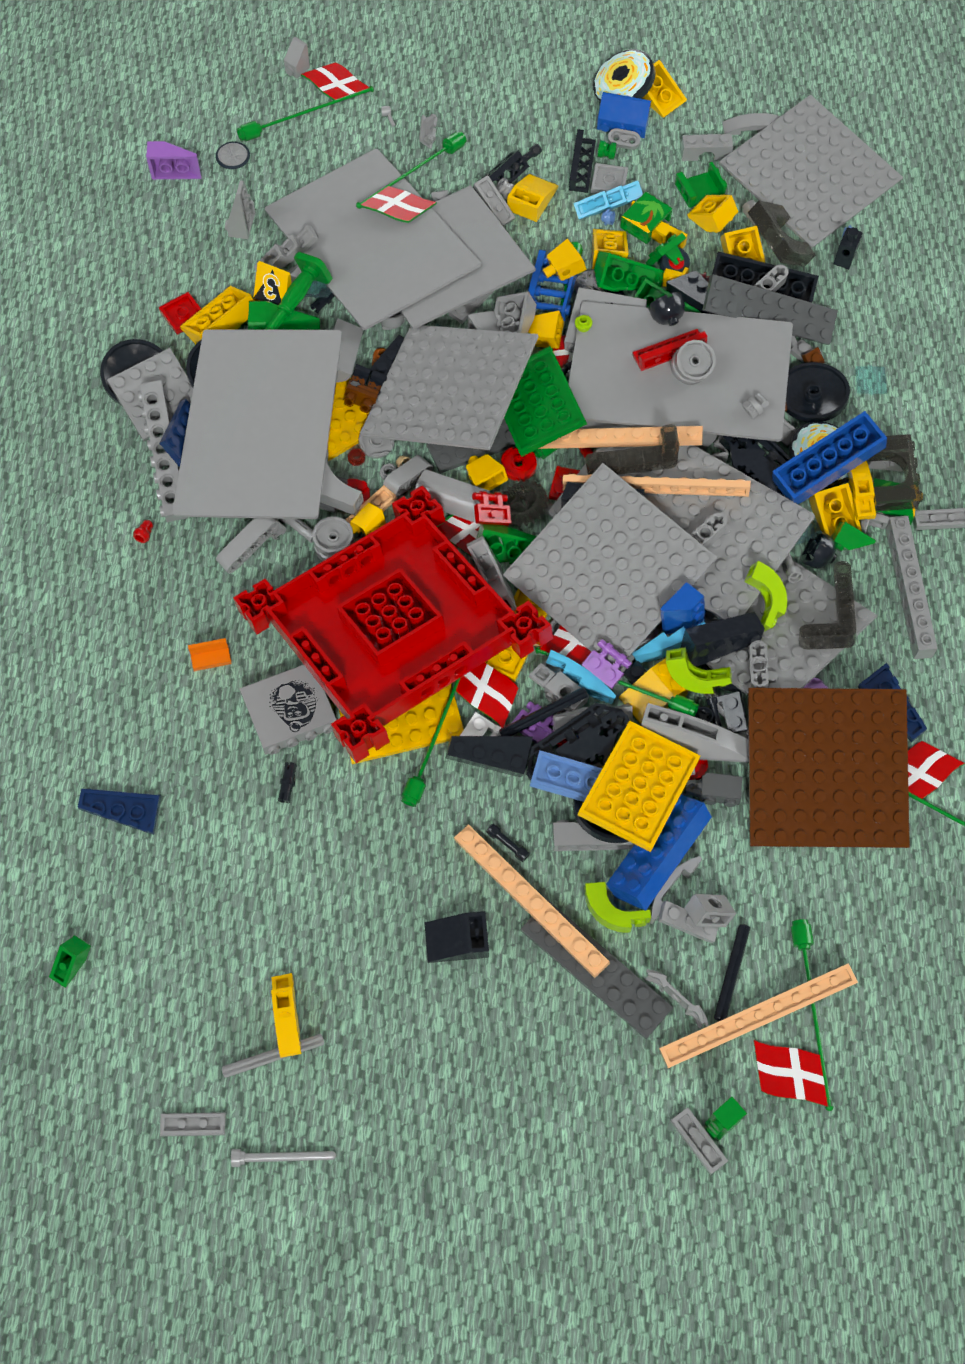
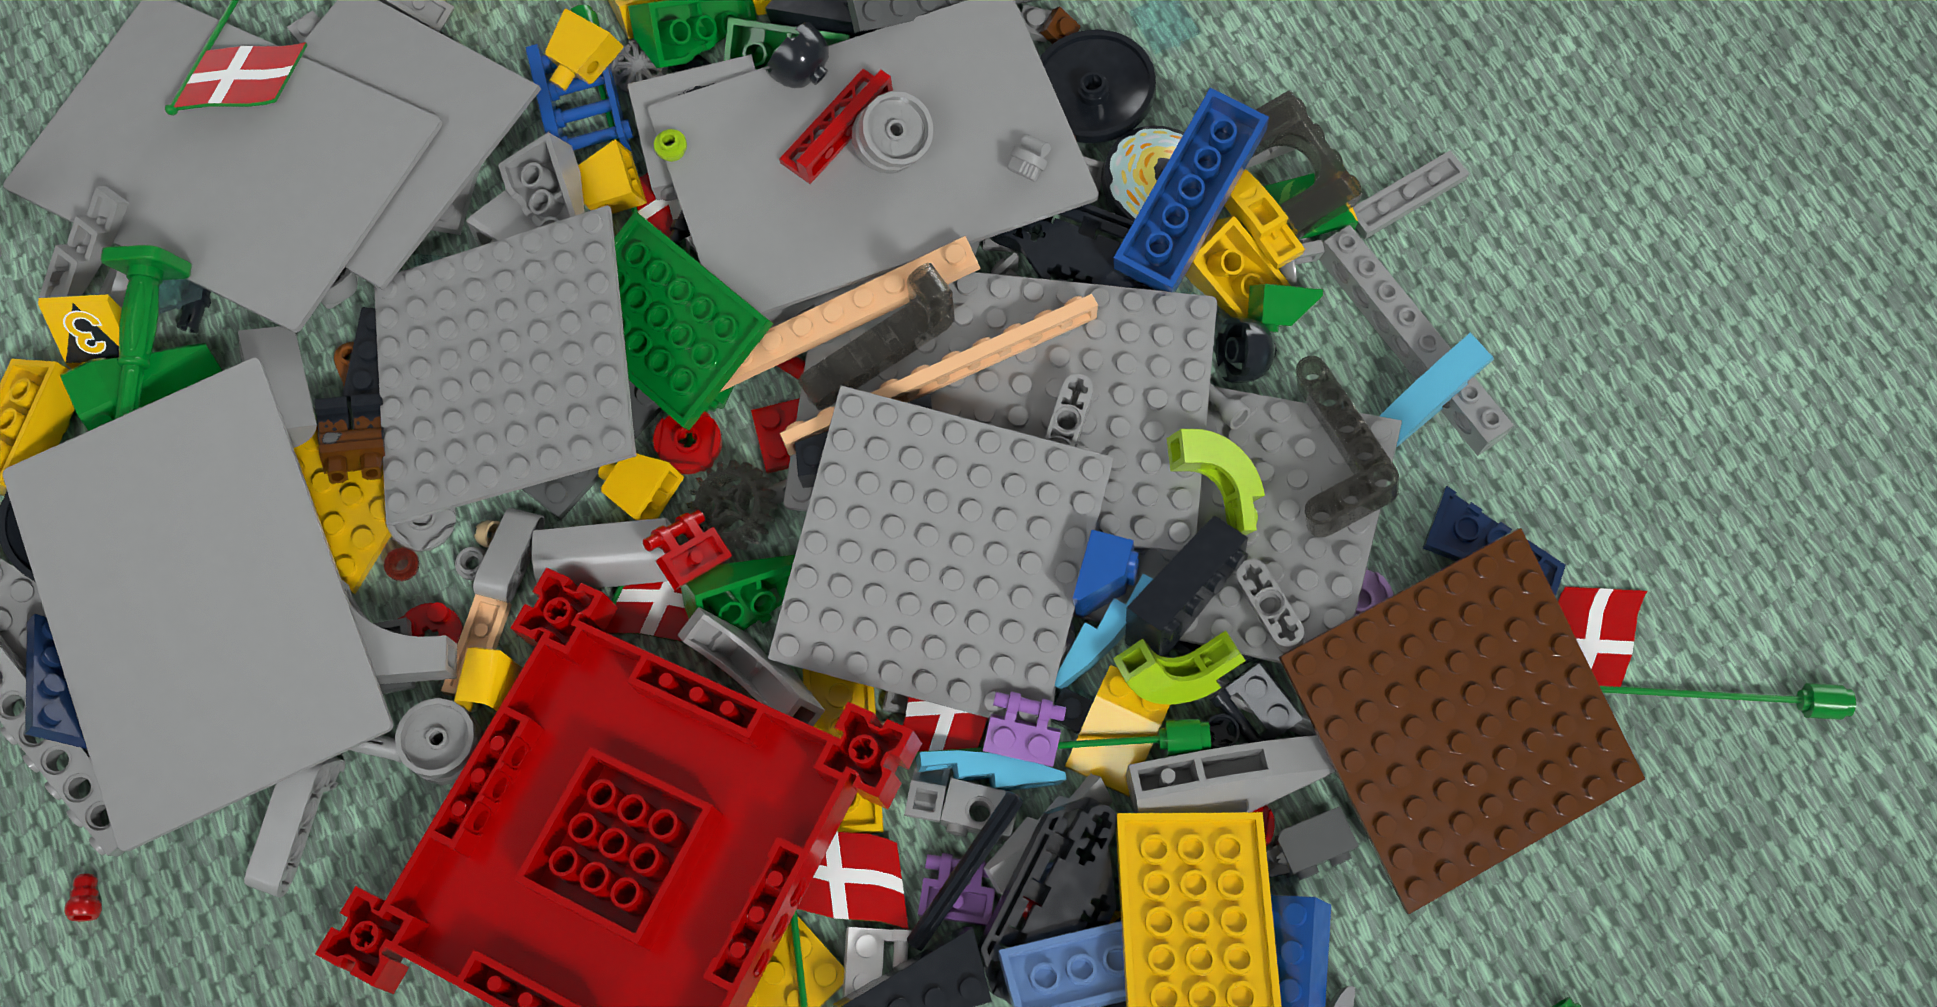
camera: 30 degrees left, 5 degrees up
(904, 611) = (1438, 385): none -> medium azure slope

